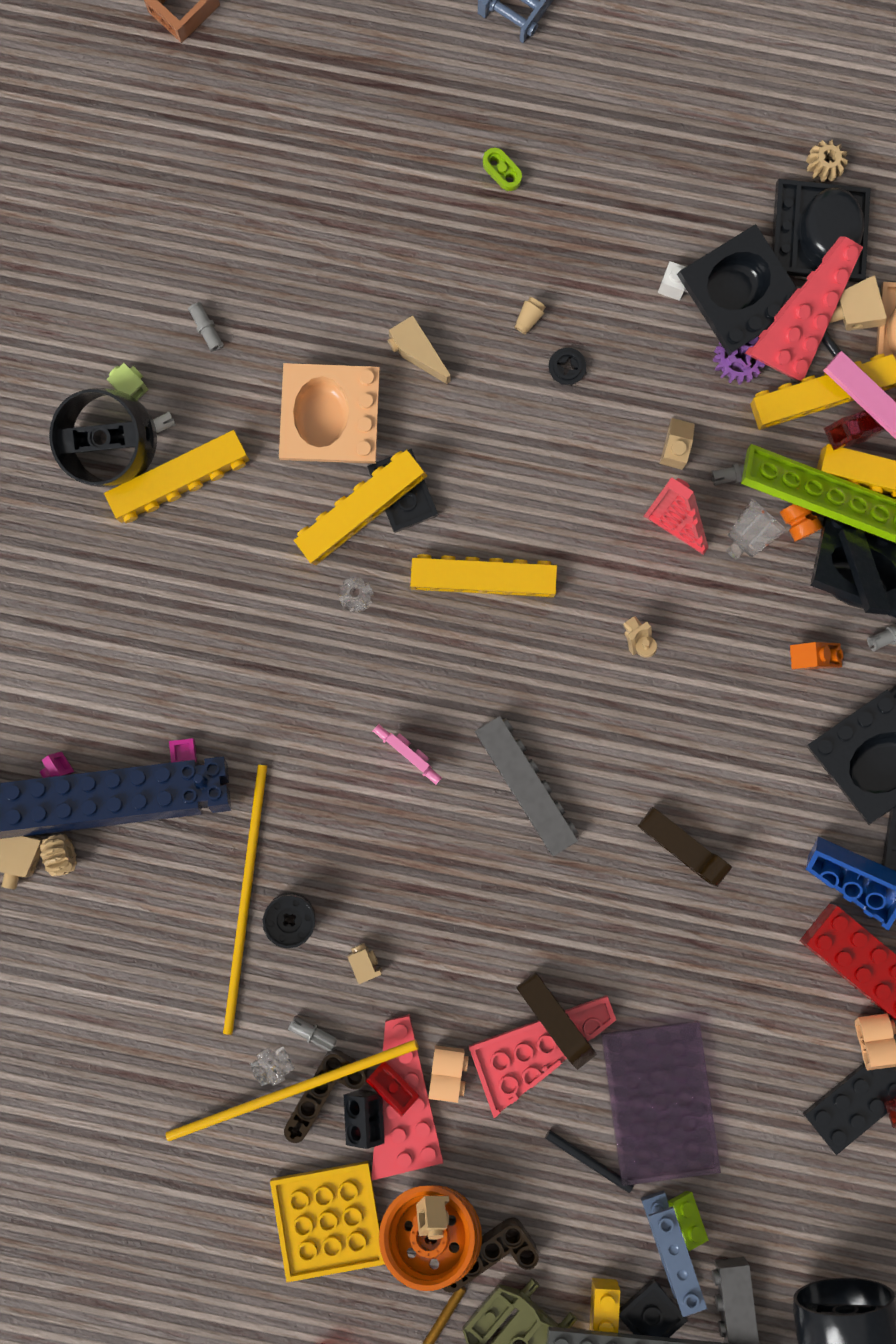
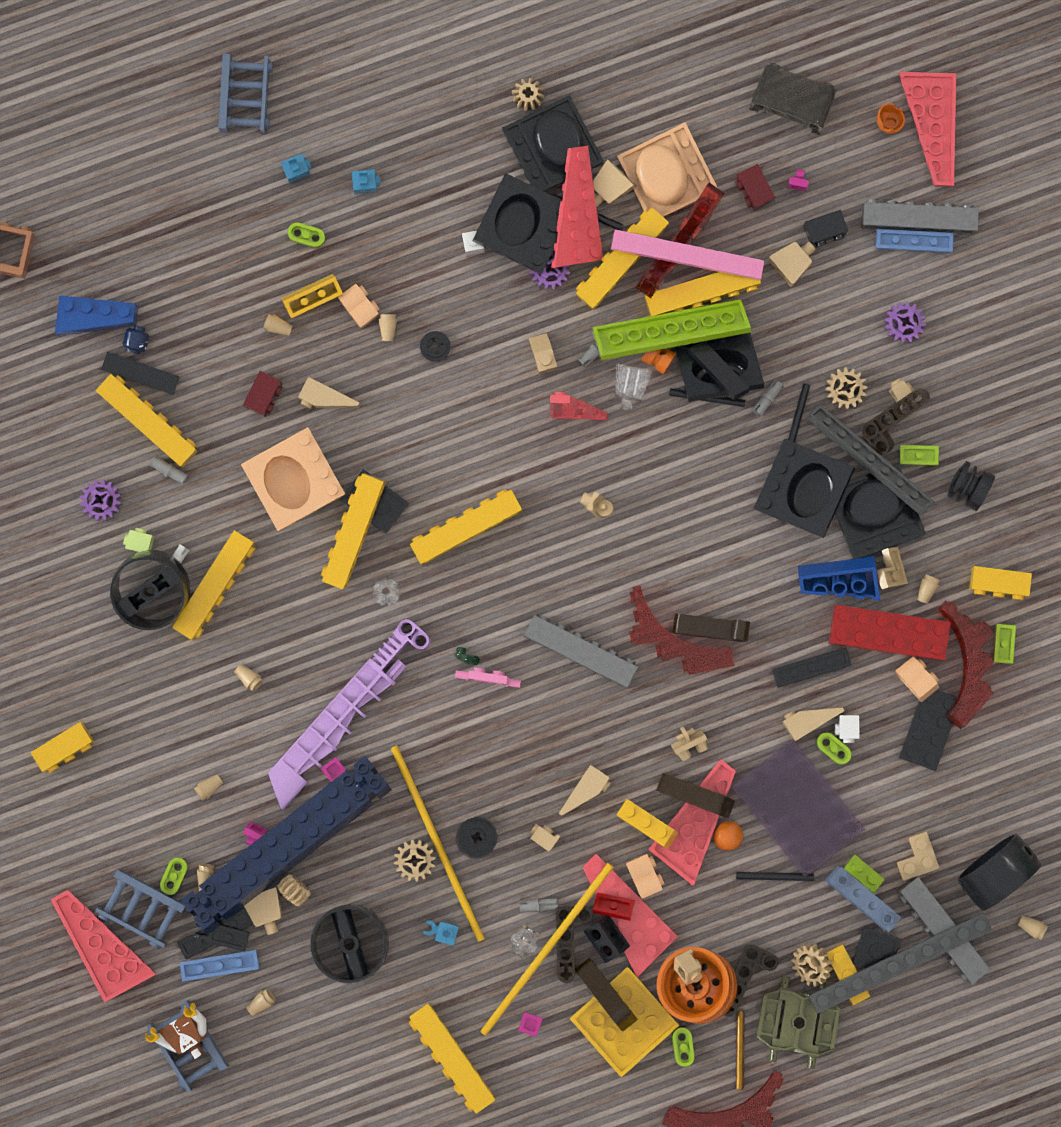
camera: 25 degrees left, 0 degrees up
(38, 687) = (207, 787): none -> tan cone
(77, 969) = (354, 957): none -> black cylinder
(107, 307) = (93, 505): none -> medium lavender gear
(116, 1145) = (452, 1058): none -> yellow brick
(154, 599) = (248, 677): none -> tan cone
(192, 1002) = (444, 932): none -> dark azure brick
(208, 701) = (329, 727): none -> lavender piece
(213, 892) = (415, 869): none -> tan gear
(214, 261) = (147, 421): none -> yellow brick
(221, 114) = (86, 315): none -> blue wedge
(223, 1161) = (530, 1024): none -> dark pink tile
(239, 209) = (140, 373): none -> black tile
(255, 170) = (136, 340): none -> dark blue head
(325, 1205) = (606, 994): none -> dark brown beam
(354, 306) = (263, 393): none -> dark red brick
(376, 1288) = (683, 1046): none -> lime plate
(399, 720) = (468, 659): none -> clear green arm
(413, 244) = (277, 325): none -> tan cone
(443, 939) = (588, 787): none -> tan slope
(469, 233) = (312, 296): none -> yellow brick
(484, 1020) = (647, 824): none -> yellow brick
(512, 275) = (359, 306): none -> light nougat brick
(534, 92) = (296, 168): none -> dark azure brick
(564, 1085) = (727, 836): none -> orange hair
(572, 1289) = (812, 964): none -> tan gear
(583, 954) = (687, 740): none -> tan hips
(598, 149) = (365, 181): none -> dark azure brick
(615, 809) = (649, 631): none -> clear red arch
(721, 1012) = (803, 722): none -> tan slope
(738, 1059) = (833, 748): none -> lime plate
(763, 1244) = (923, 859): none -> tan plate
(766, 956) = (811, 667): none -> black tile
(767, 1048) = (847, 728): none -> white brick
(816, 655) = (724, 443): orange slope -> none
(829, 598) = (725, 400): none -> black bar

